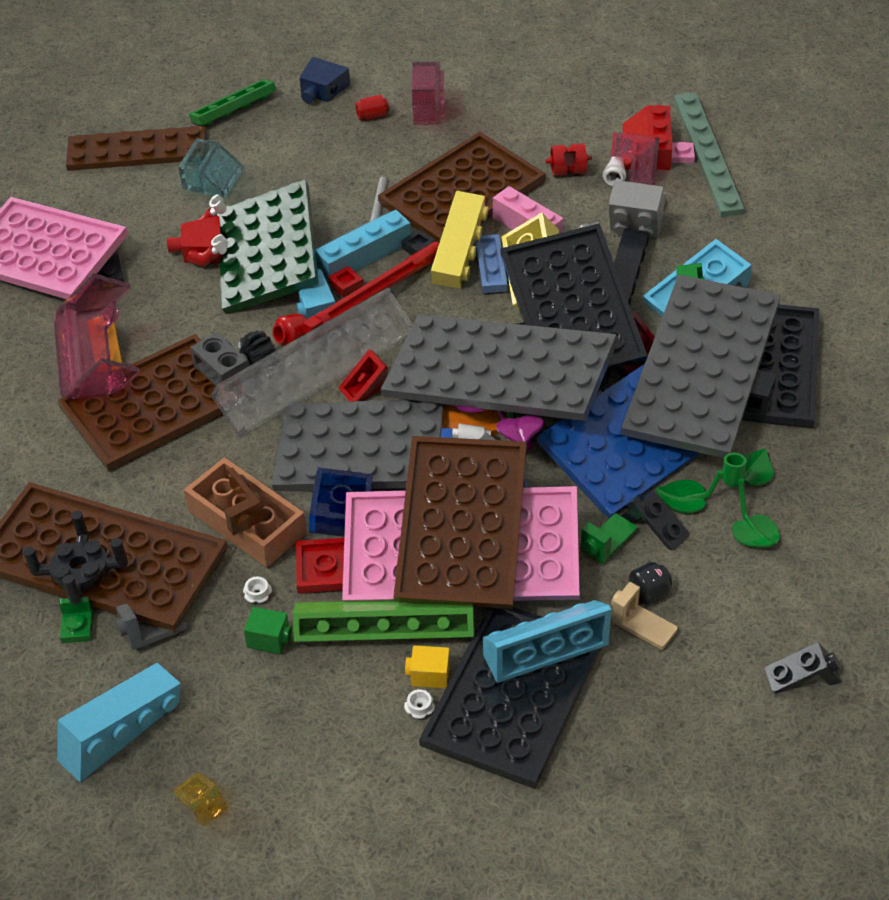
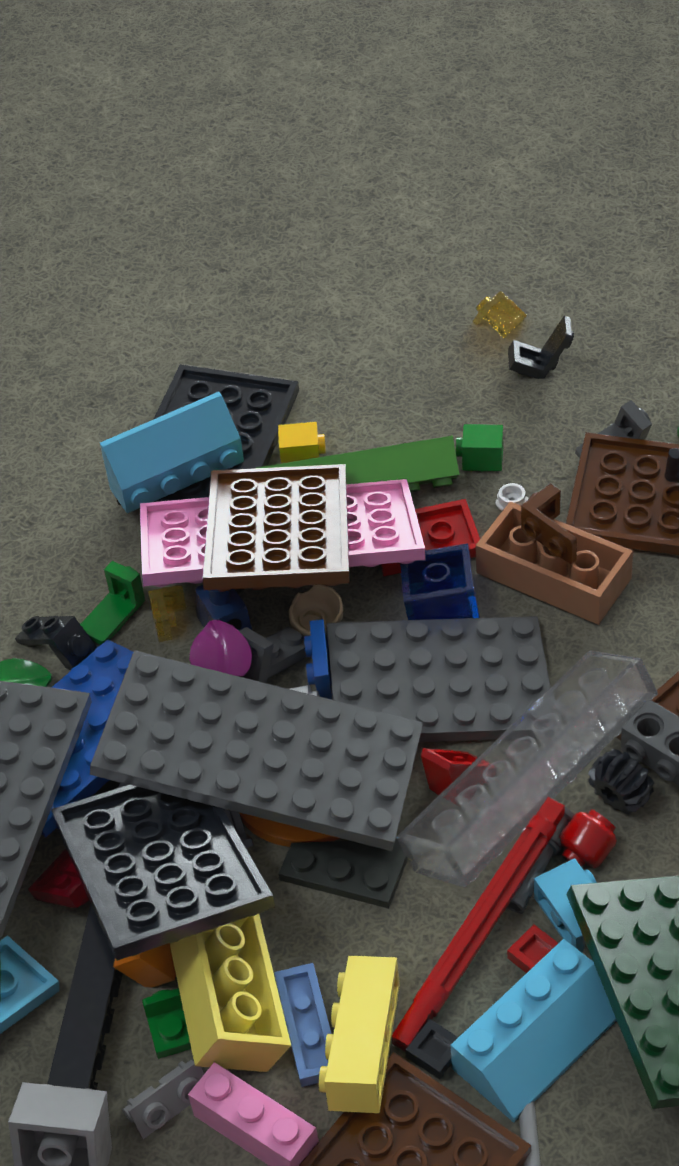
camera: 175 degrees right, 0 degrees up
(114, 719) = (604, 346): medium azure wedge -> none
(177, 731) = (536, 361): none -> black bracket
(419, 697) = (305, 414): white plate -> none
(638, 620) = (78, 528): tan bracket -> none
(653, 582) = (64, 561): black head -> none

